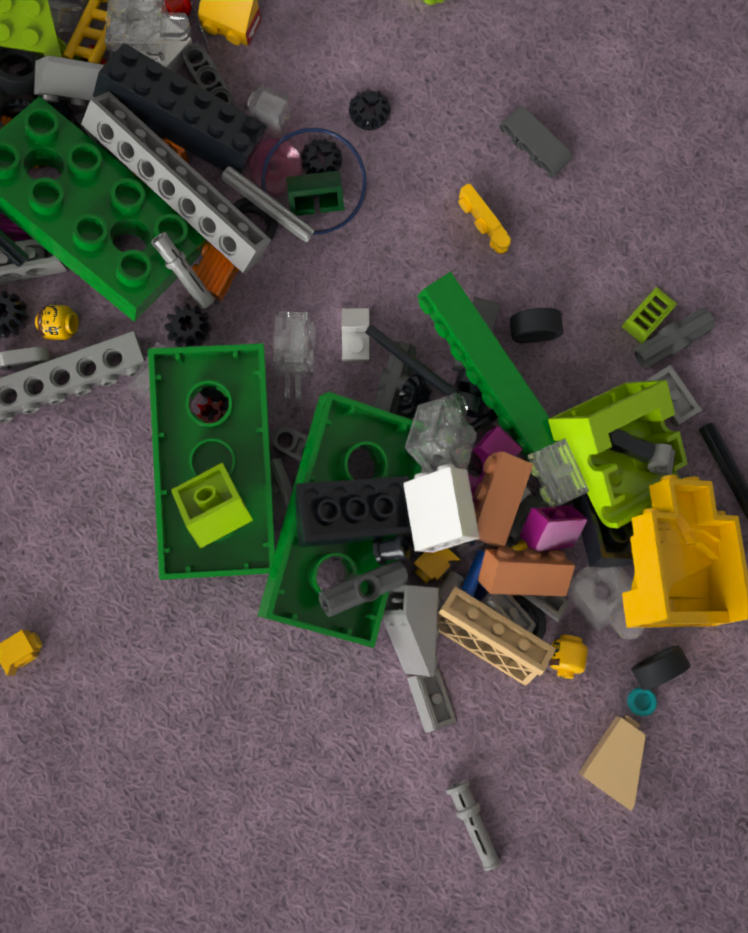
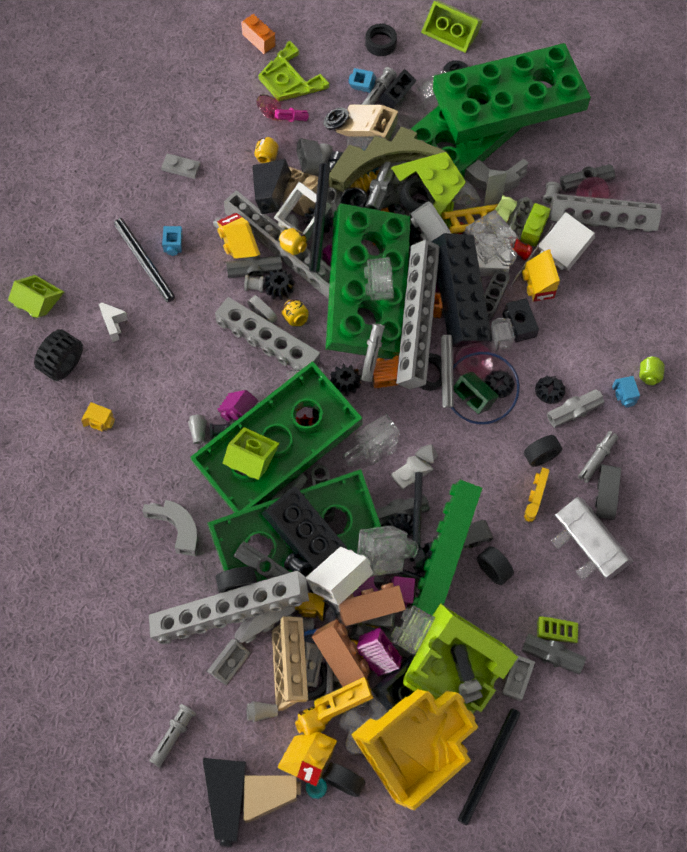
camera: 50 degrees right, 15 degrees down
(100, 191) = (379, 279): none -> clear brick
(120, 540) = (198, 428): none -> light grey cone
(129, 475) = (237, 405): none -> magenta brick
(142, 517) = (215, 430): none -> black bush
(245, 643) = (175, 514): none -> light grey arch
(254, 65) = (521, 311): none -> black brick
(336, 749) = (162, 622): none -> light grey brick
(347, 301) = (427, 453): none -> light grey slope
(360, 634) = (235, 578): none -> black tyre
(414, 99) = (575, 408): none -> light grey piece
(435, 29) = (626, 391): none -> dark azure brick
(441, 172) = (542, 450): none -> black tyre
(483, 109) = (601, 452): none -> light grey pin
(515, 706) = (260, 711): none -> light grey cone
(579, 605) = (343, 699): none -> yellow plate
(583, 197) = (593, 538): none -> flat silver piece
(583, 809) = (225, 793): none -> black slope
(608, 689) = (308, 756): none -> yellow slope

